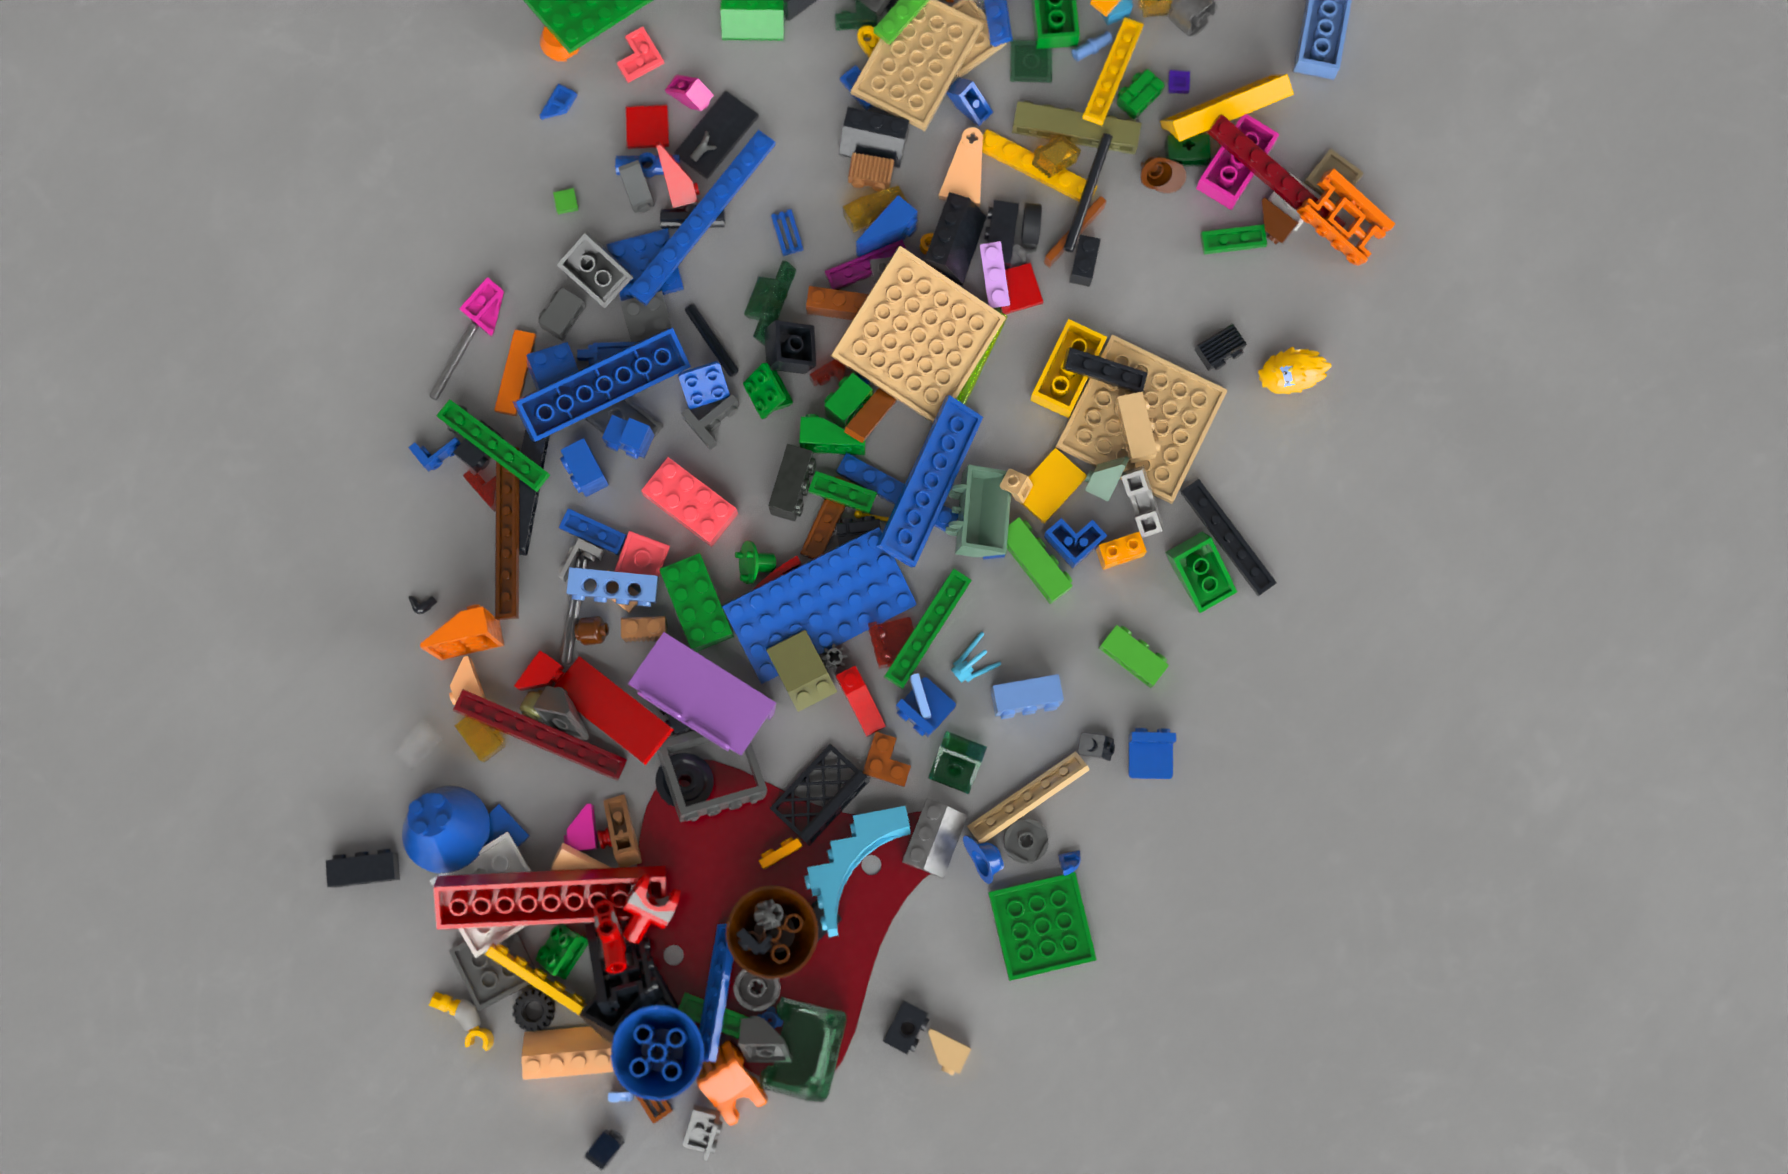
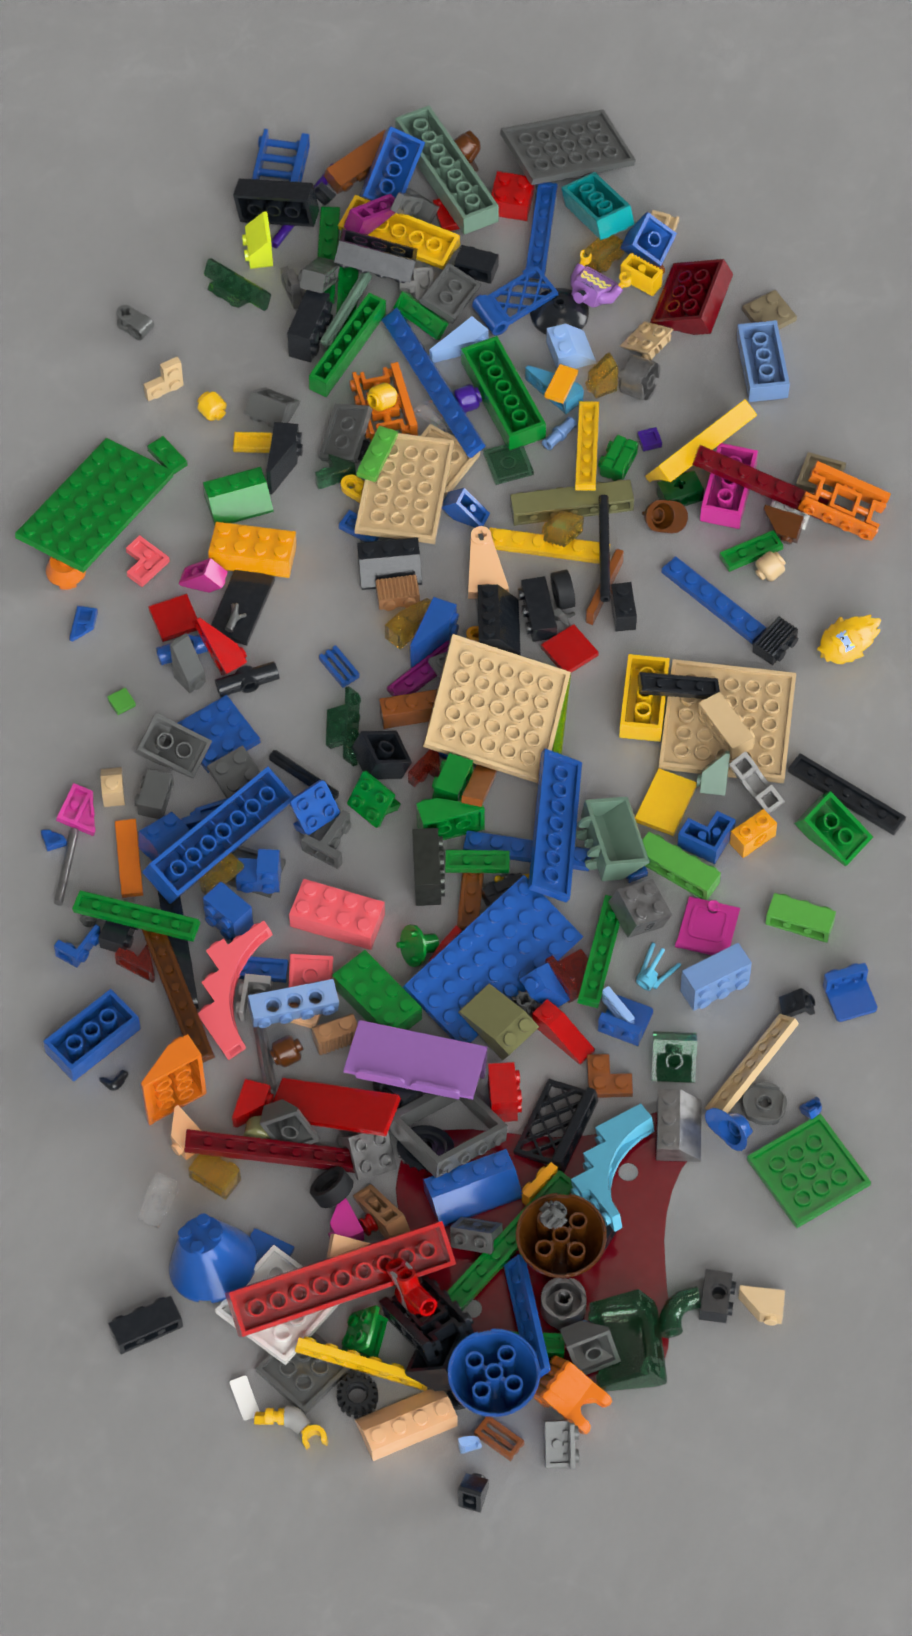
camera: 15 degrees left, 20 degrees down
(413, 553) = (92, 1035): none -> blue brick
(431, 973) = (244, 1397): none -> white sticker
(450, 328) = (53, 840): none -> blue tile
(524, 290) = (112, 787): none -> tan slope
(540, 573) = (221, 986): none -> coral arch
(586, 800) = (331, 1187): none -> black tyre
(591, 426) = (222, 872): none -> clear yellow bracket
(627, 770) = (369, 1154): none -> flat silver bracket
(647, 909) = (436, 1256): connector -> none
(700, 885) = (474, 1234): none -> dark grey bracket
(701, 217) = (257, 673): blue plate -> none
(716, 837) = (473, 1188): none -> blue slope
(721, 907) = (505, 1247): none -> green plate
(746, 78) = (253, 549): none -> light orange brick
(747, 941) = (545, 1244): black bracket -> none
(778, 748) = (504, 1090): none -> red brick
(857, 649) = (544, 985): none -> blue slope
(861, 1027) = (675, 1308): none -> clear green cylinder
(980, 597) = (640, 908): none -> flat silver brick
(994, 274) = (546, 639): lavender plate -> none
(1017, 484) = (637, 803): tan bracket -> none
(1038, 637) = (705, 930): none -> dark pink container
(1177, 280) = (713, 600): none -> blue plate
(1245, 263) = (770, 566): none -> tan head

